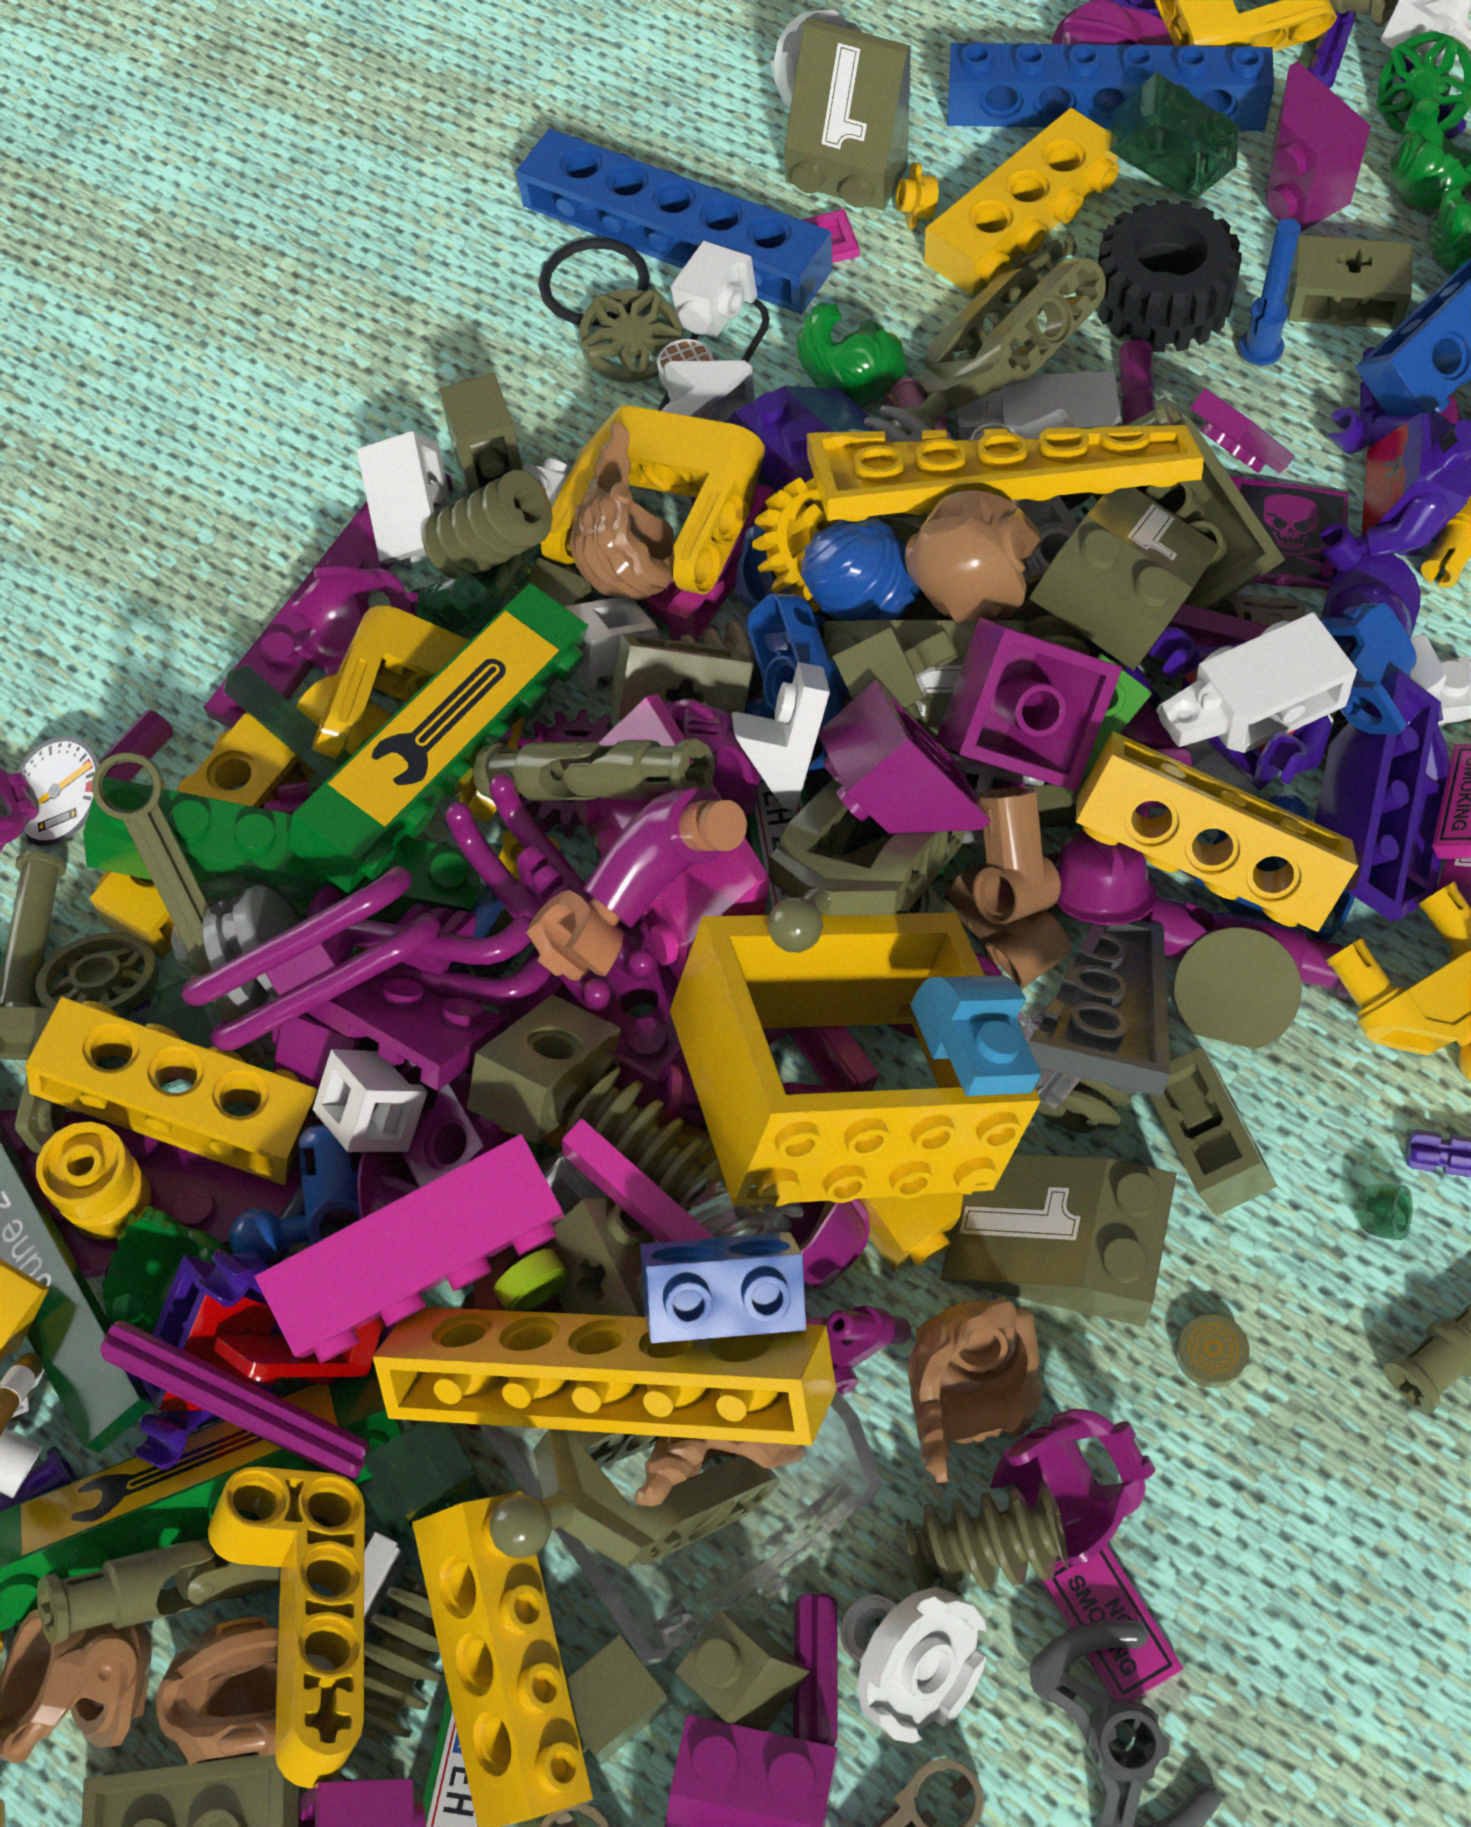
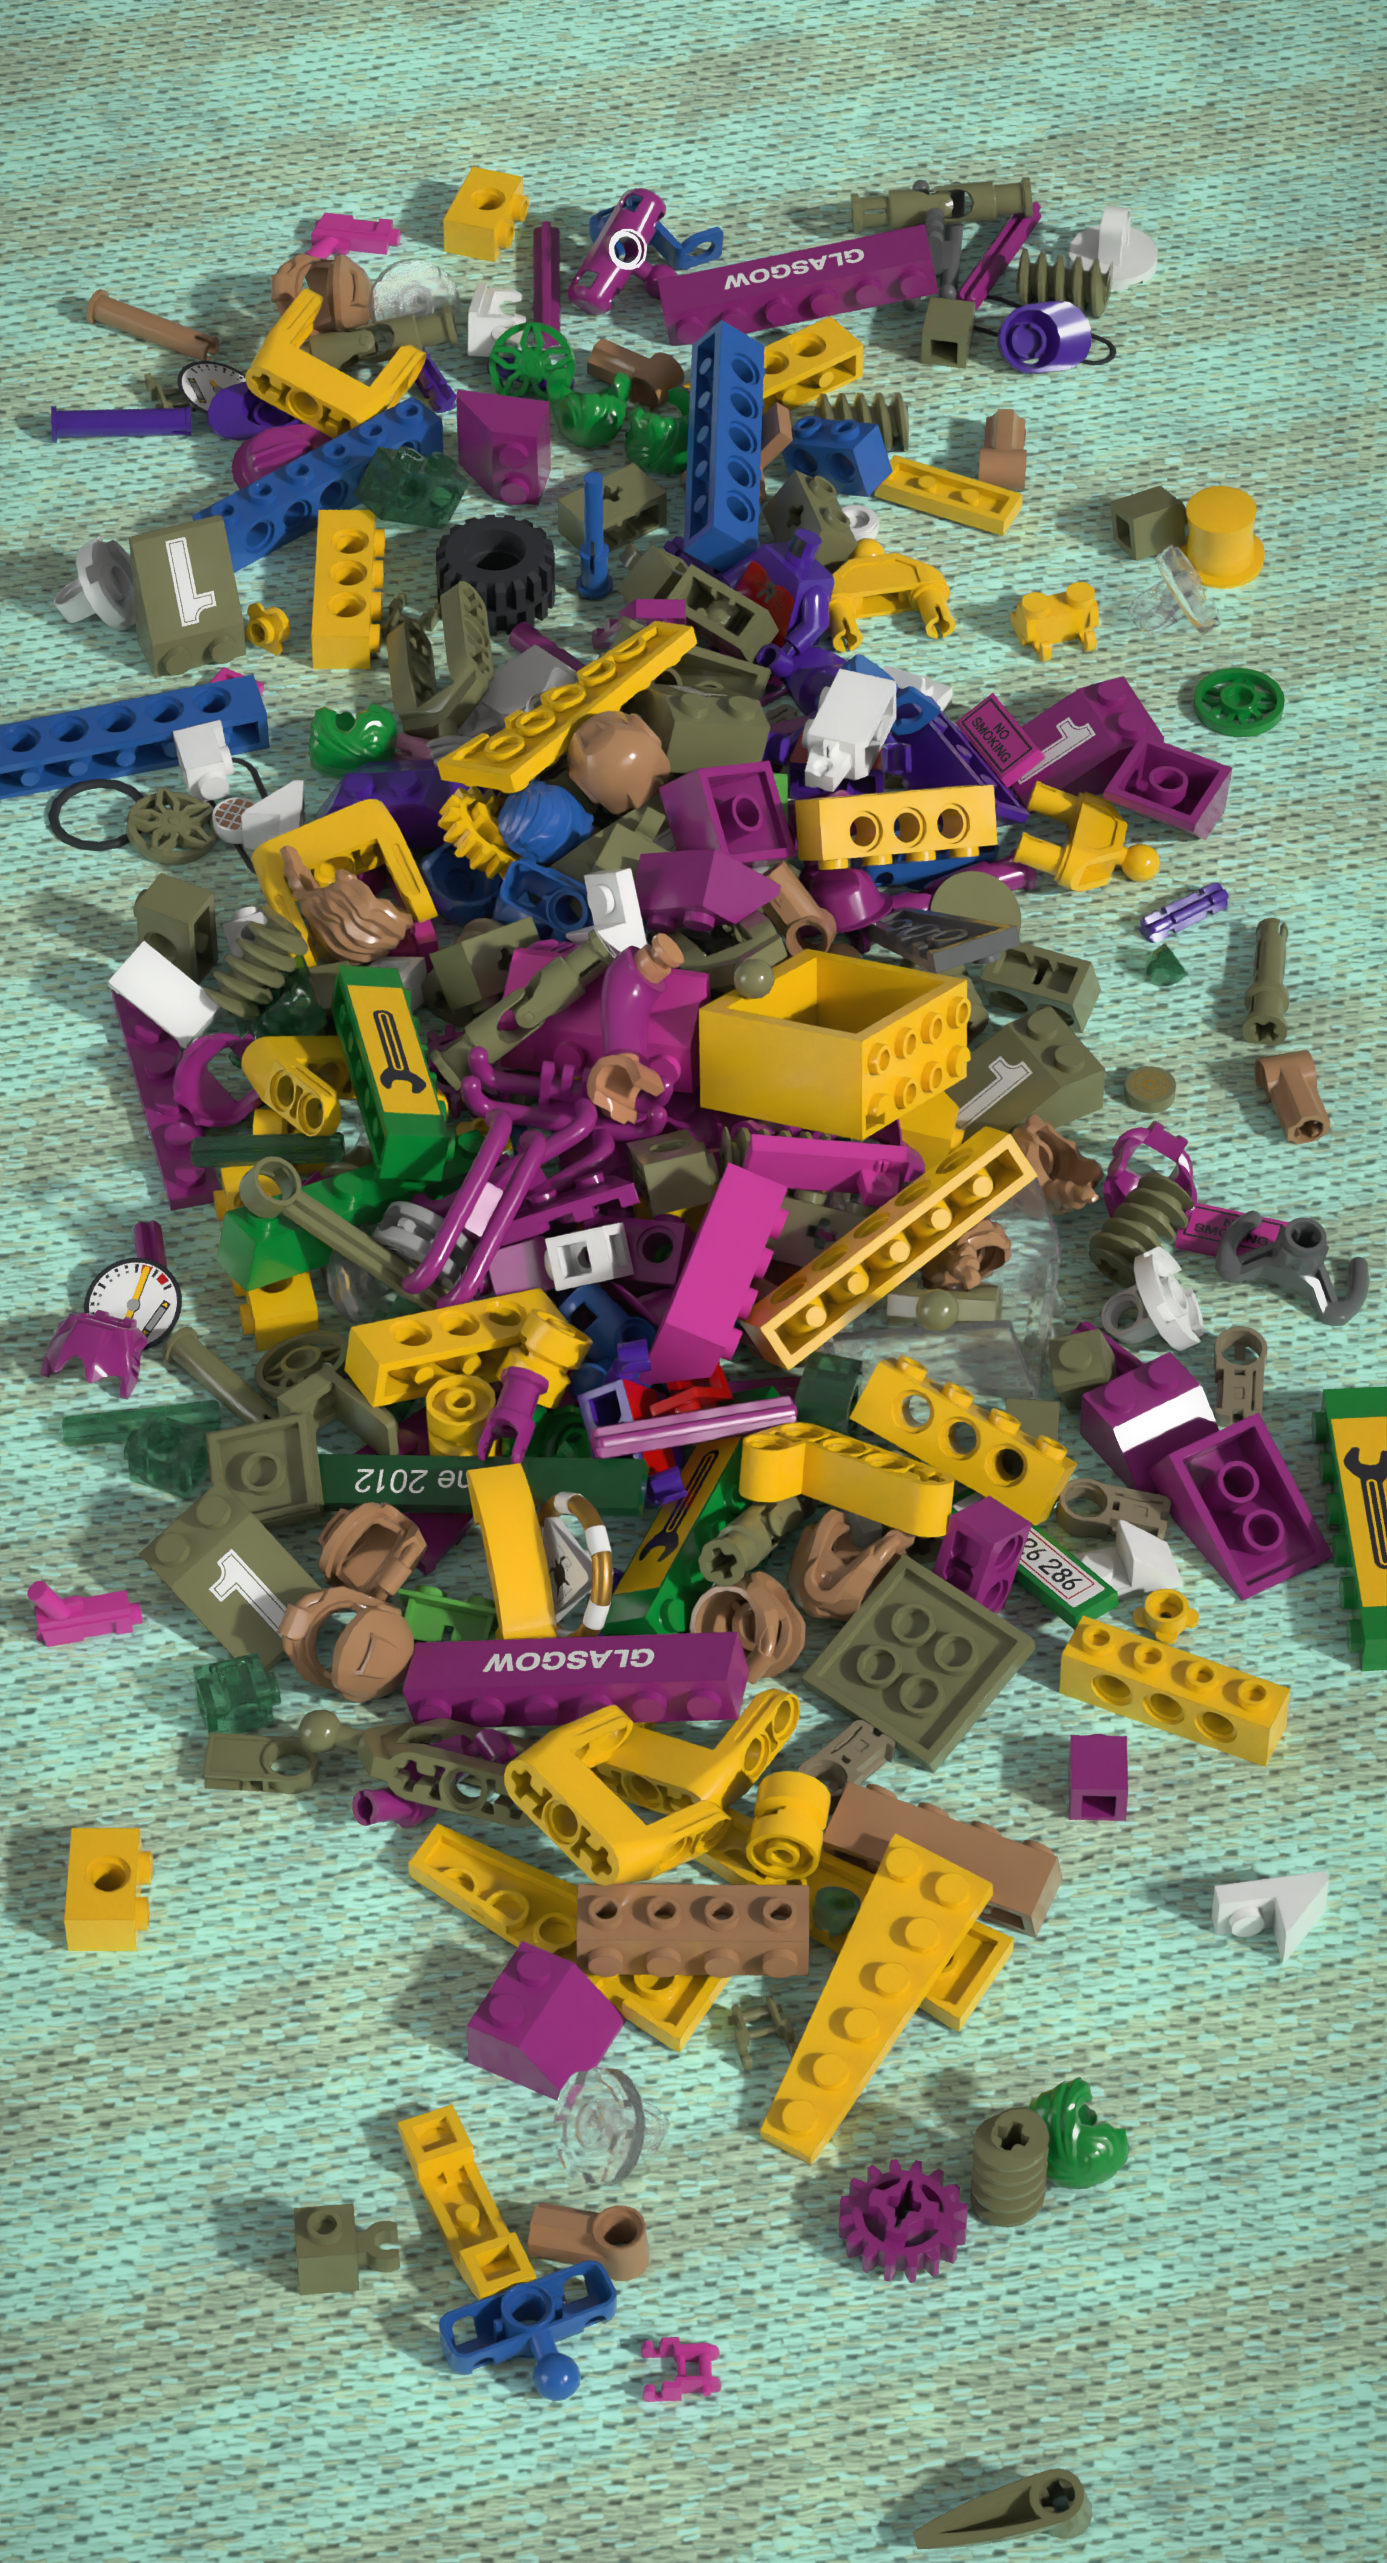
camera: 50 degrees left, 15 degrees down
(94, 1227) = (513, 1412): none -> magenta piece
(209, 1181) = (550, 1350): none -> yellow wheel
(531, 1281) = (791, 1255): lime tile -> none
(723, 1287) = (915, 1145): brick -> none
(978, 1030) = (900, 960): dark azure brick -> none
(1304, 387) = (650, 574): none -> olive brick
(1319, 461) = (724, 615): none -> olive brick
(1361, 1493) = (1292, 1091): none -> medium nougat piece

